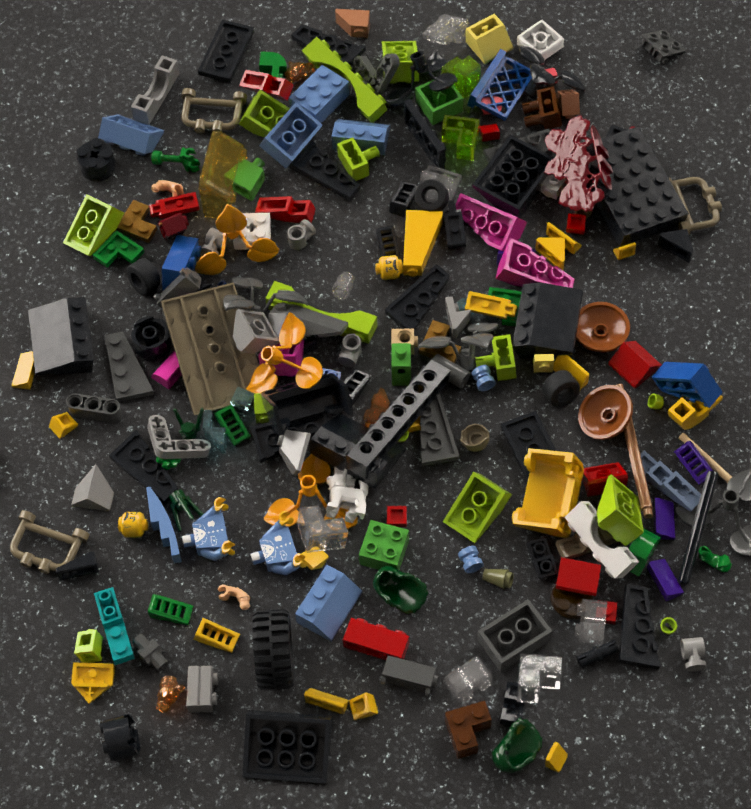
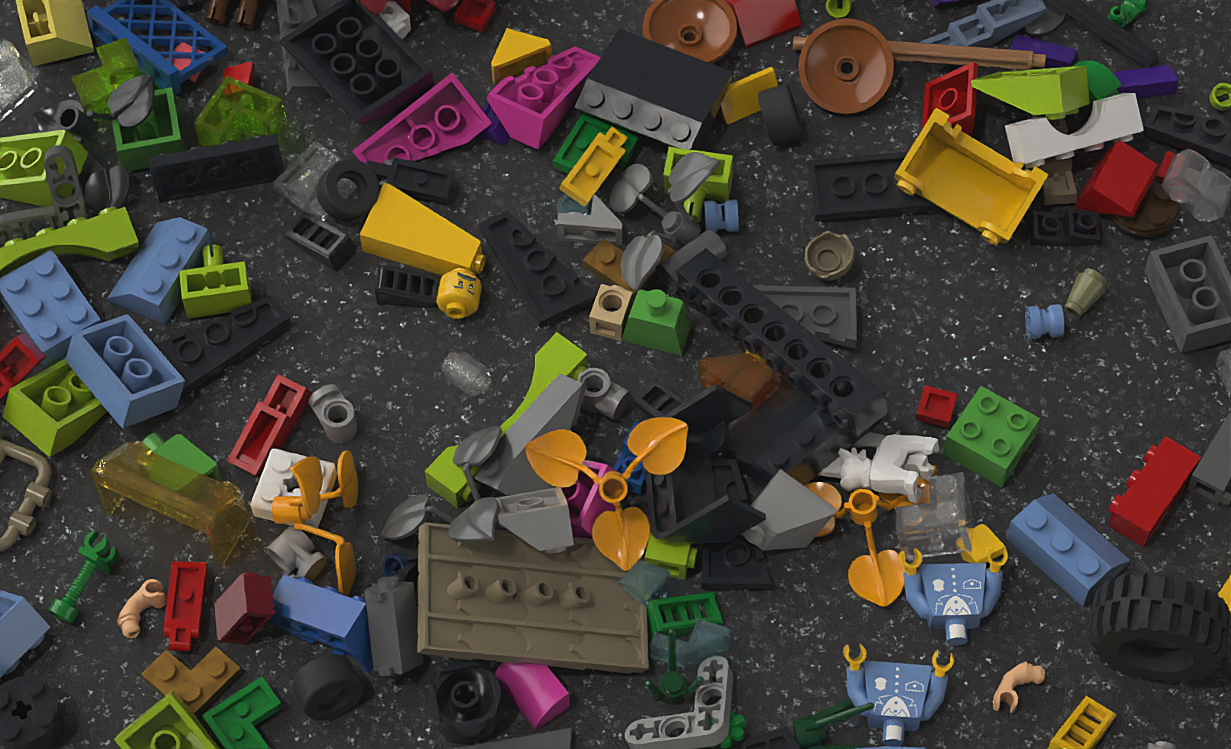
camera: 75 degrees left, 0 degrees up
(400, 589) = (1080, 429): dark green piece -> none
(476, 507) = (954, 288): lime slope -> none
(543, 362) = (725, 125): light yellow bracket -> none
(570, 244) = (489, 41): yellow slope -> none

